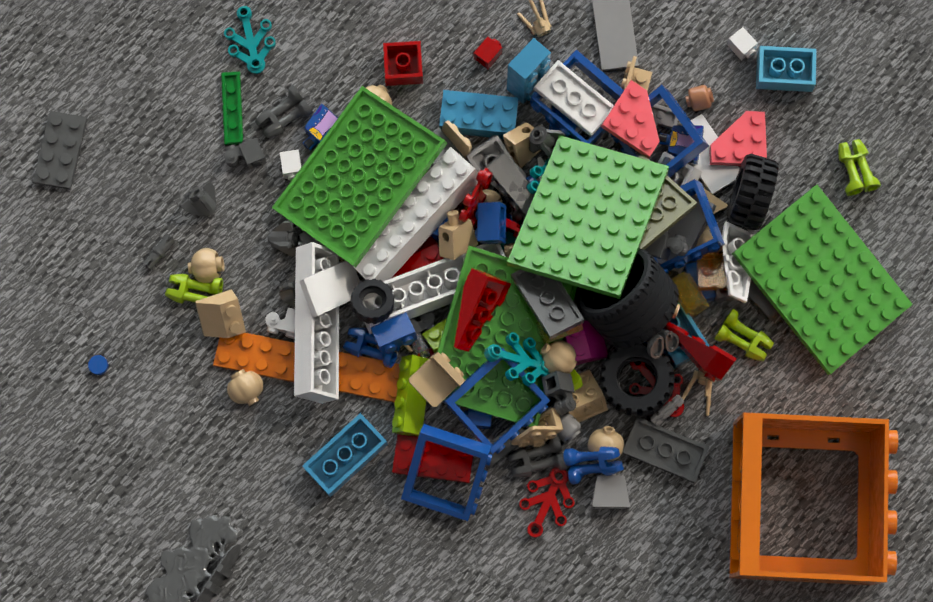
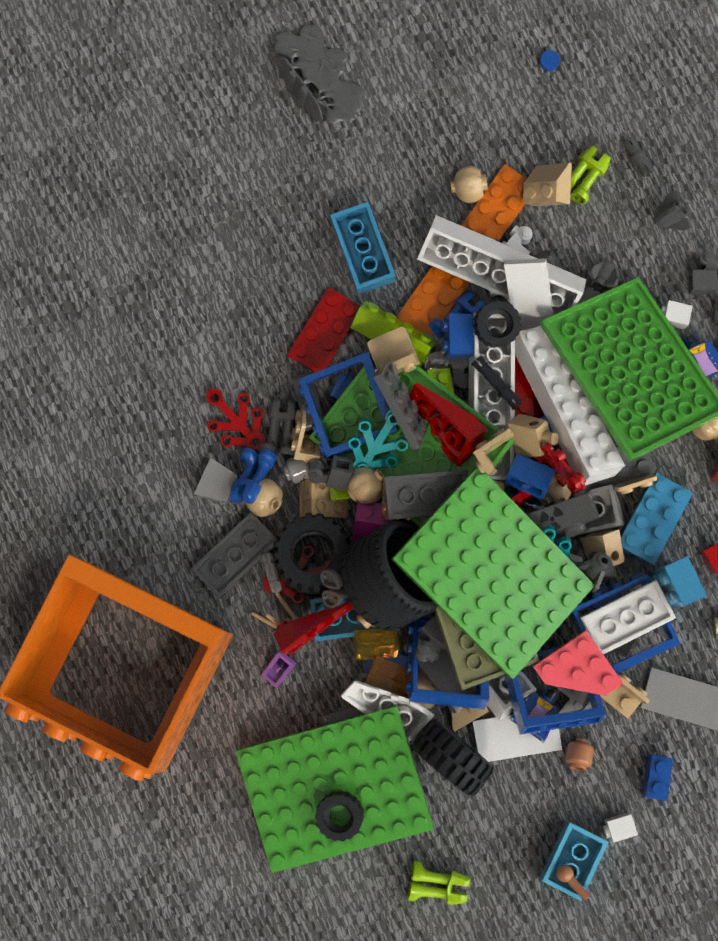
camera: 115 degrees right, 5 degrees up
(205, 265) = (605, 194): tan plant -> none
(426, 275) = (497, 383): none -> black pin
(455, 442) = (319, 349): blue window -> none
(481, 349) = (402, 407): none -> dark grey plate
(486, 261) = (484, 463): none -> tan bracket
(689, 30) = (657, 777): none -> blue brick
(742, 138) = (515, 777): coral plate -> none
(744, 370) = (278, 669): none -> medium lavender slope
(756, 338) = (331, 680): lime piece -> none
(801, 68) = (565, 874): none -> nougat bar
(854, 253) = (334, 832): none -> black tyre

